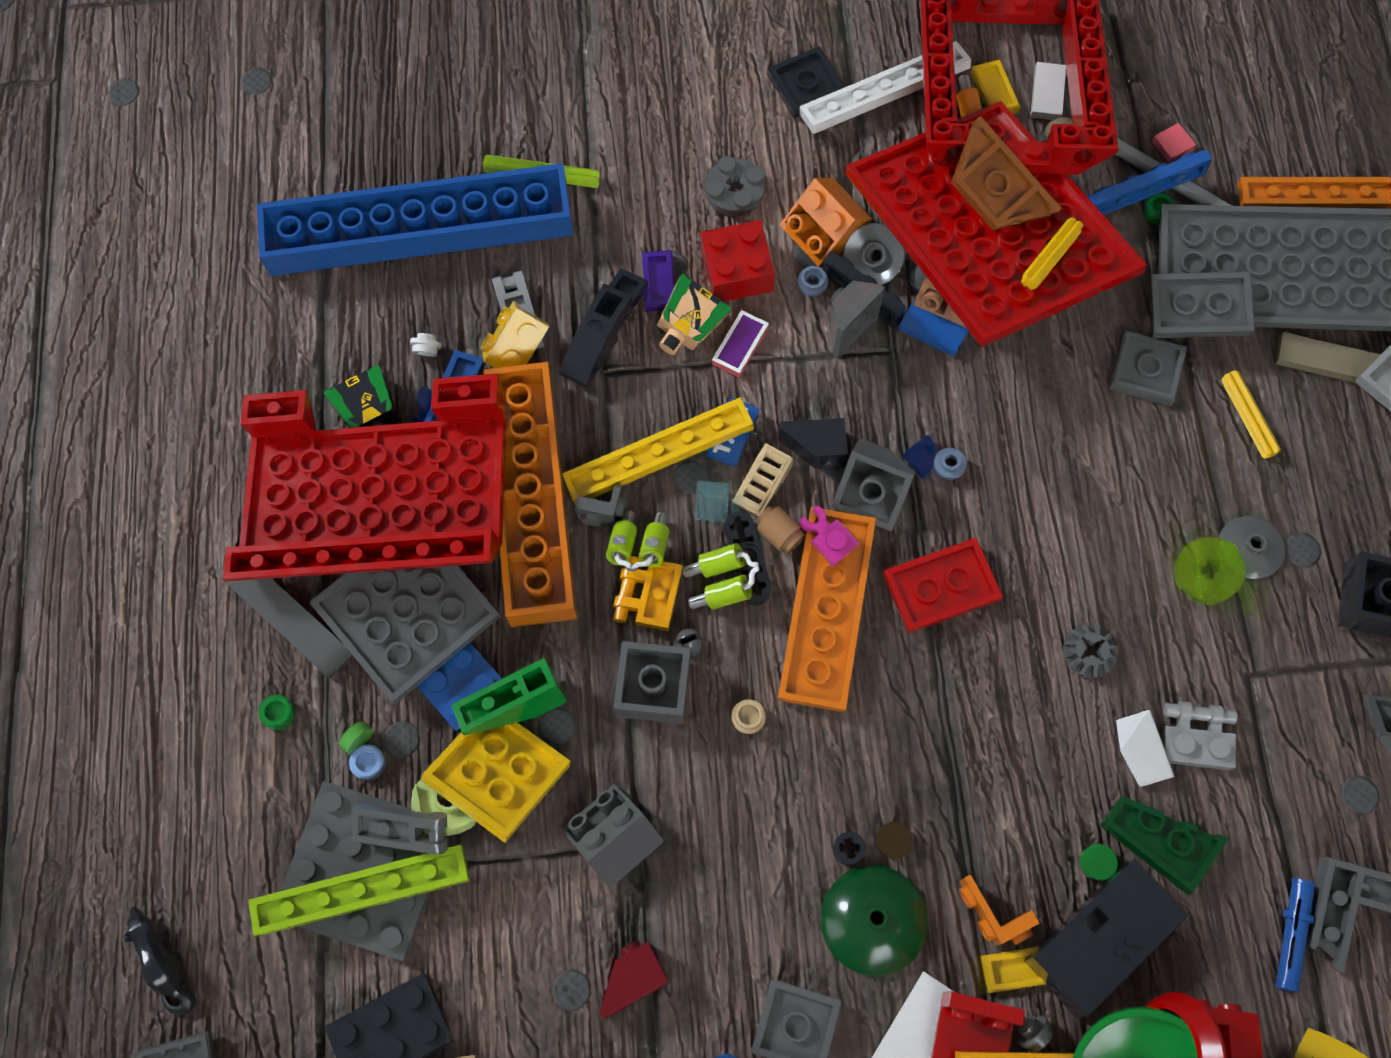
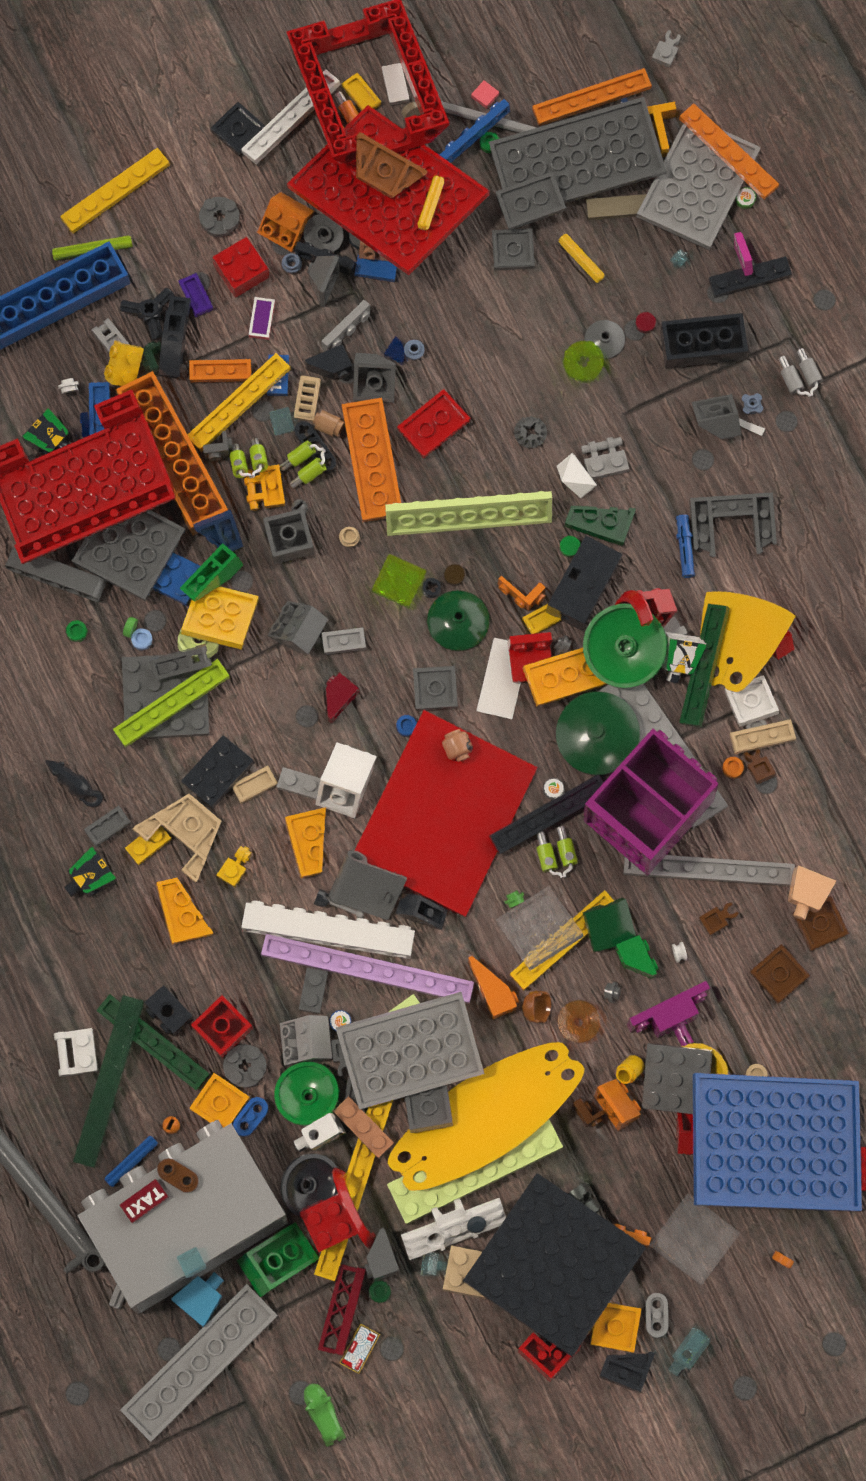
camera: 25 degrees left, 5 degrees up
(551, 636) = (220, 530): none -> dark blue wing
(558, 335) = (149, 362): none -> clear green bracket
(576, 272) = (149, 319): none -> black bush
(605, 108) = (115, 190): none -> yellow plate
(649, 396) = (219, 370): none -> orange plate
(676, 886) = (343, 641): none -> light grey plate
(690, 315) = (225, 312): torso -> none
(800, 818) = (399, 581): none -> clear neon green plate
(832, 539) = (360, 420): dark pink plate -> none
(861, 394) = (346, 326): none -> light grey plate
(954, 749) = (469, 513): none -> yellowish green plate
(1325, 544) = (645, 322): none -> dark red tile

